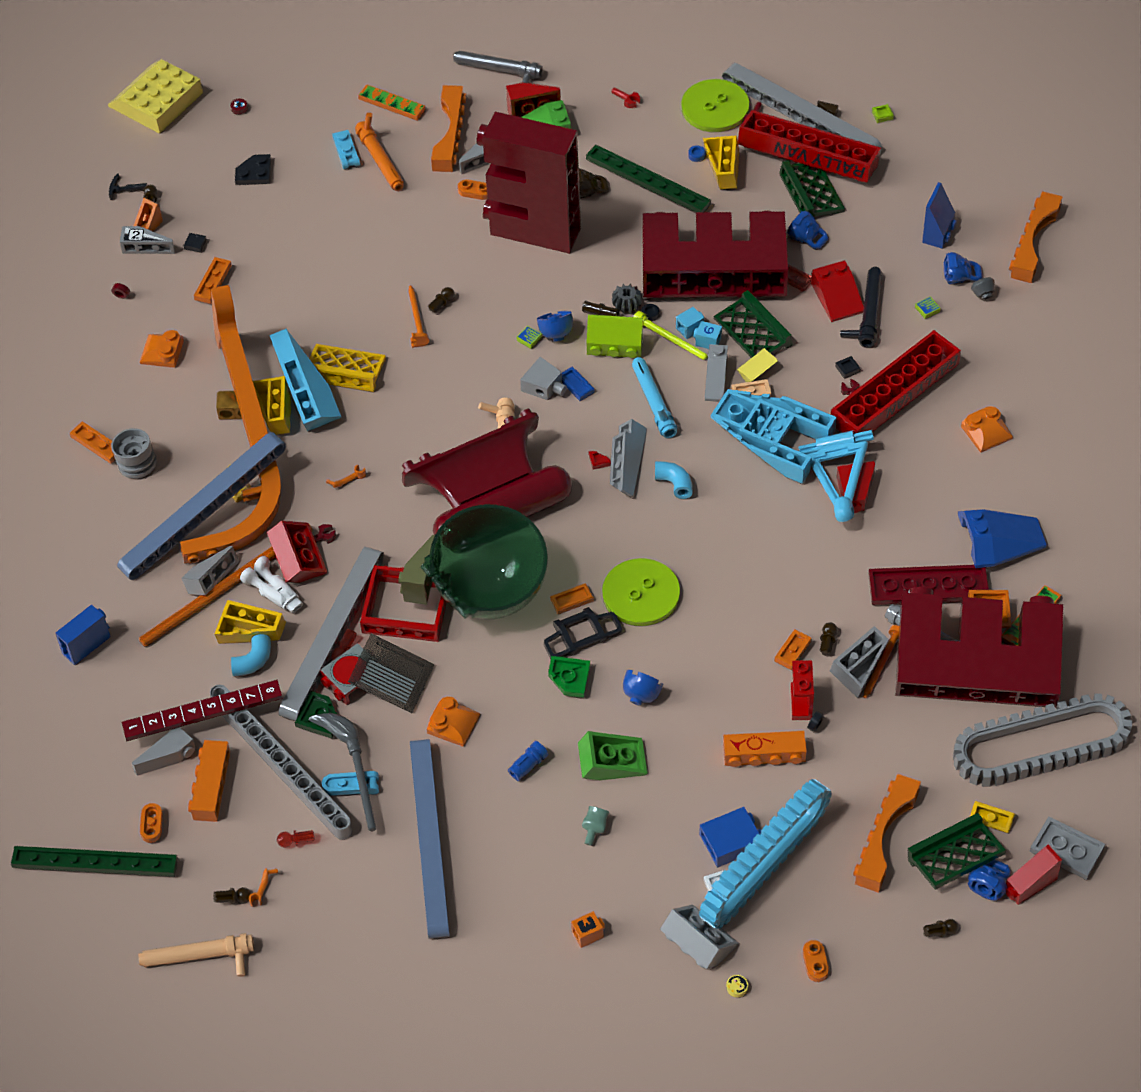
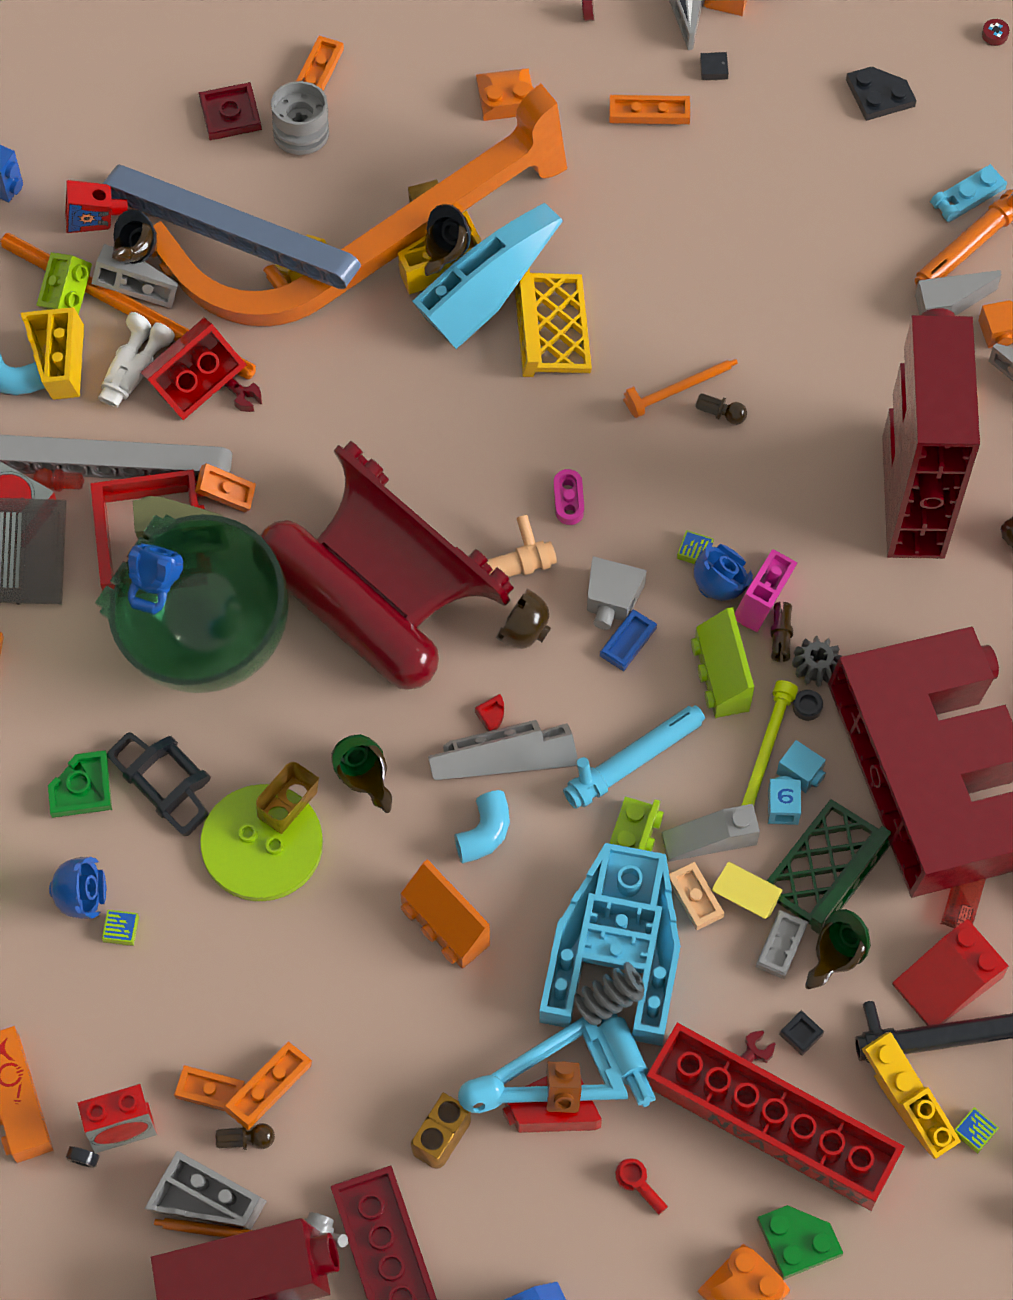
camera: 70 degrees right, 10 degrees up
(101, 497) = (230, 111): none -> dark red tile
(145, 577) = (90, 206): none -> red torso
(192, 553) = (133, 237): none -> piece
(197, 610) = (64, 282): none -> lime bracket
(275, 386) = (445, 237): none -> piece
(357, 474) = (350, 392): orange piece -> none
(392, 553) = (225, 487): none -> orange plate
(413, 178) = (956, 292): none -> light grey slope
(462, 573) = (152, 571): none -> blue piece
(470, 386) = (568, 499): none -> dark pink plate
(550, 425) = (526, 622): none -> dark brown cylinder
(571, 598) = (224, 750): orange tile -> none
(579, 307) = (764, 590): none -> dark pink slope
(612, 553) = (290, 775): none -> pearl gold piece
(616, 526) = (362, 768): none -> piece
(671, 675) = (120, 927): none -> tile
(698, 408) = (636, 824): none -> lime bracket
(725, 504) = (445, 915): none -> orange slope
(794, 360) = (781, 944): none -> light grey plate
(801, 617) = (267, 1085): none -> orange plate
(805, 433) = (612, 996): none -> dark grey piece
(806, 331) = (839, 947): none -> piece
(847, 546) = (438, 1157): none -> pearl gold piece
(852, 466) = (563, 1086): none -> dark orange bracket
(904, 328) = (909, 1096): none -> yellow slope
(908, 460) = (632, 1176): none -> red plate
(965, 399) = (798, 1240): none -> green plate

